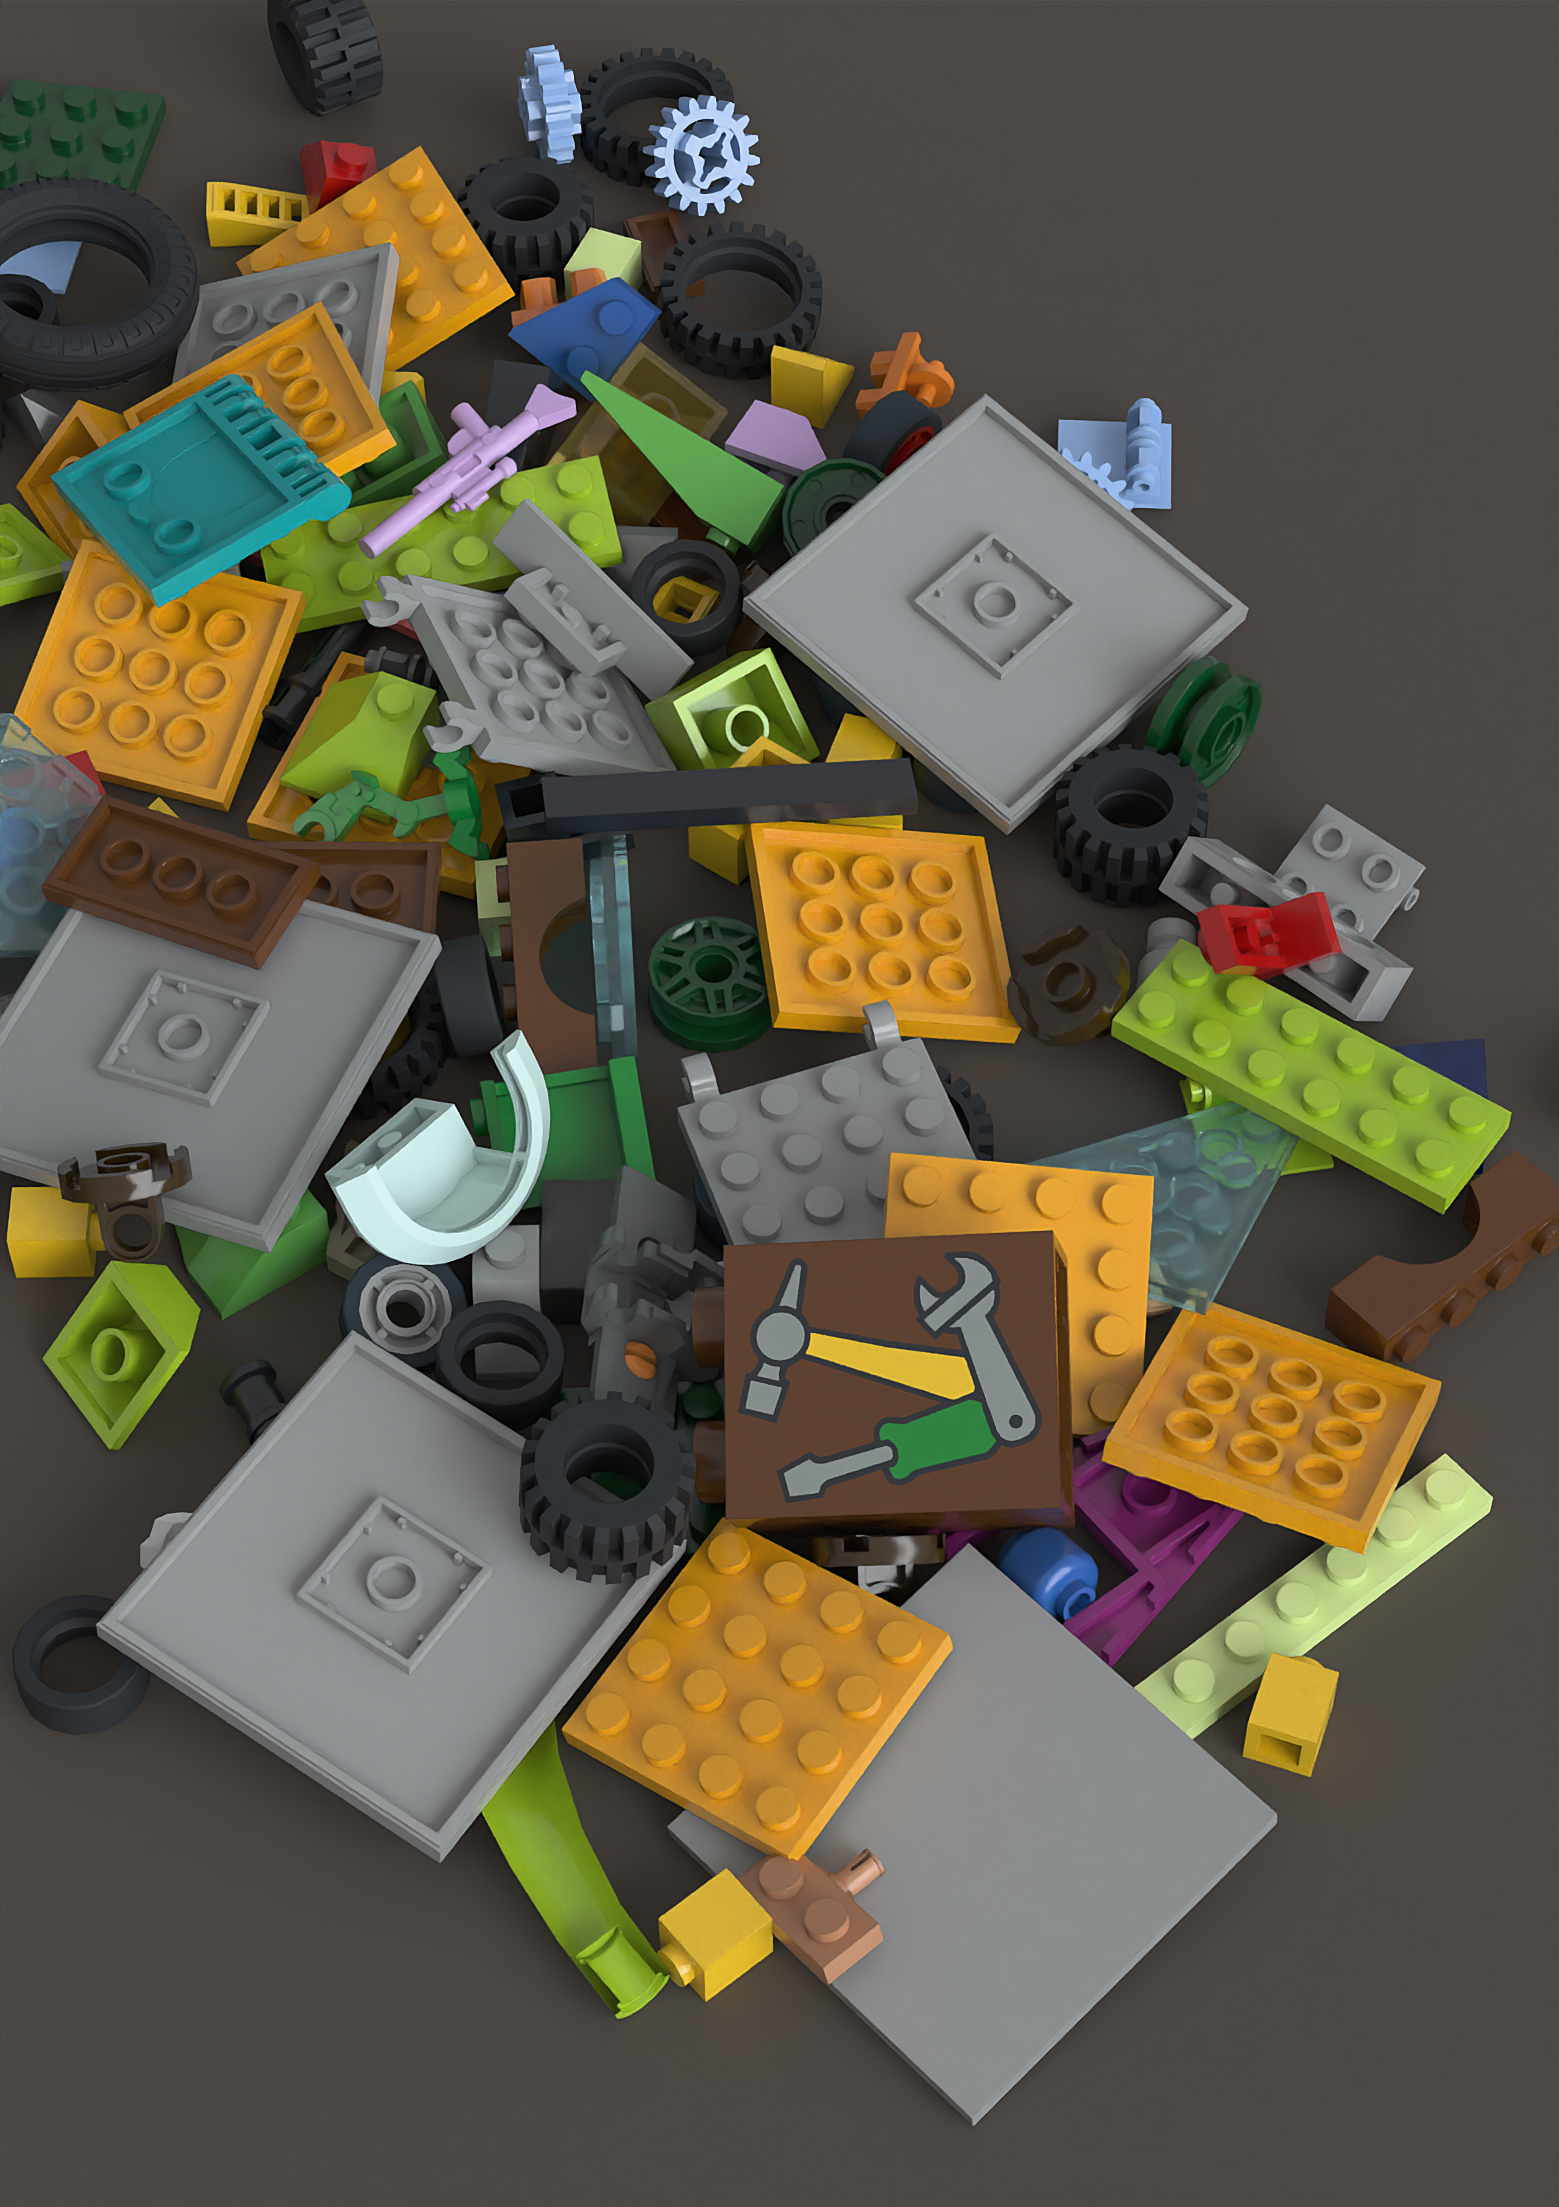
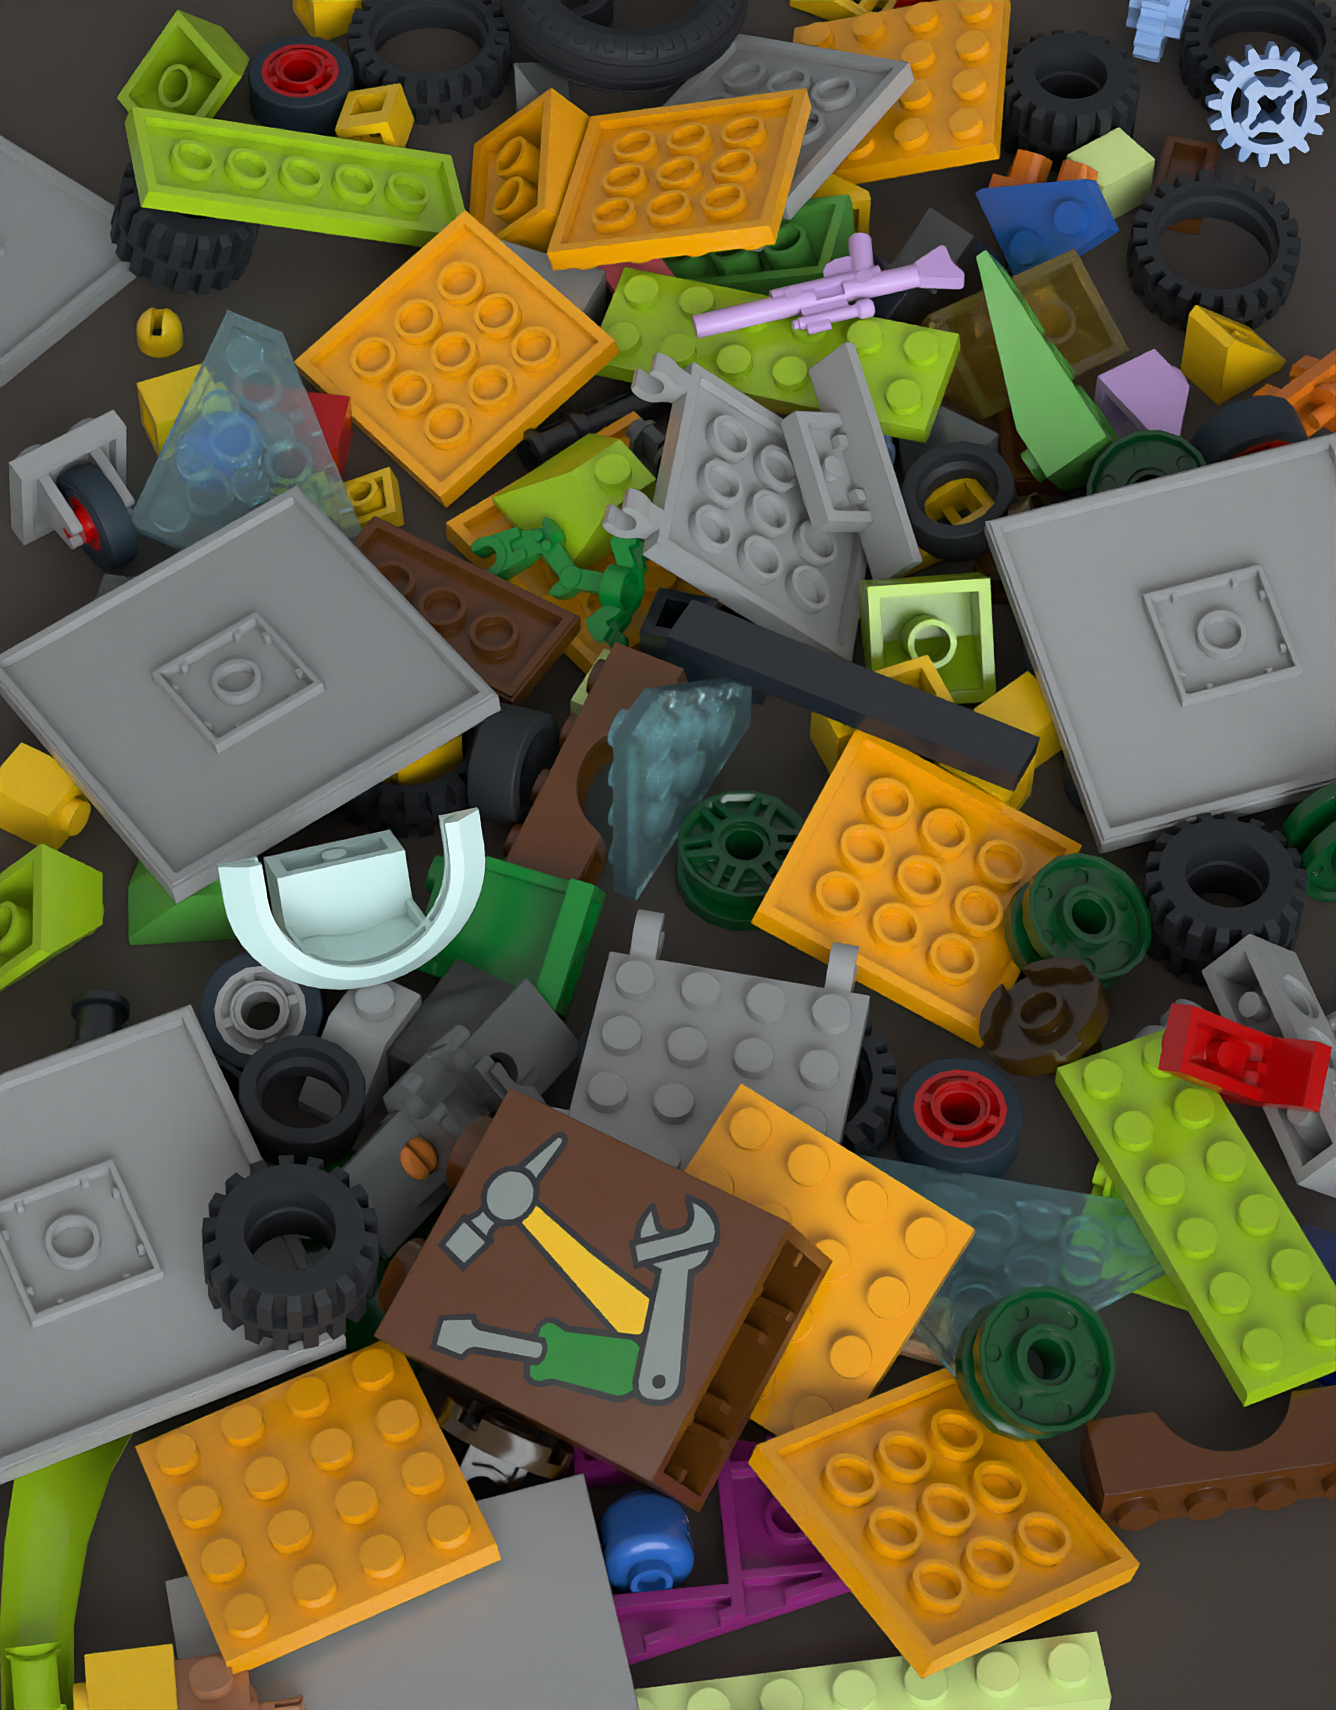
camera: 30 degrees right, 0 degrees up
(124, 1183) = (88, 782): dark brown tile -> none
(181, 881) = (326, 545): reddish brown tile -> none
(199, 489) = (581, 208): teal hinge -> none
(1030, 889) = (1083, 893): none -> dark green wheel
(1047, 1104) = (964, 1093): none -> wheel
(1265, 1263) = (1074, 1357): none -> dark green wheel

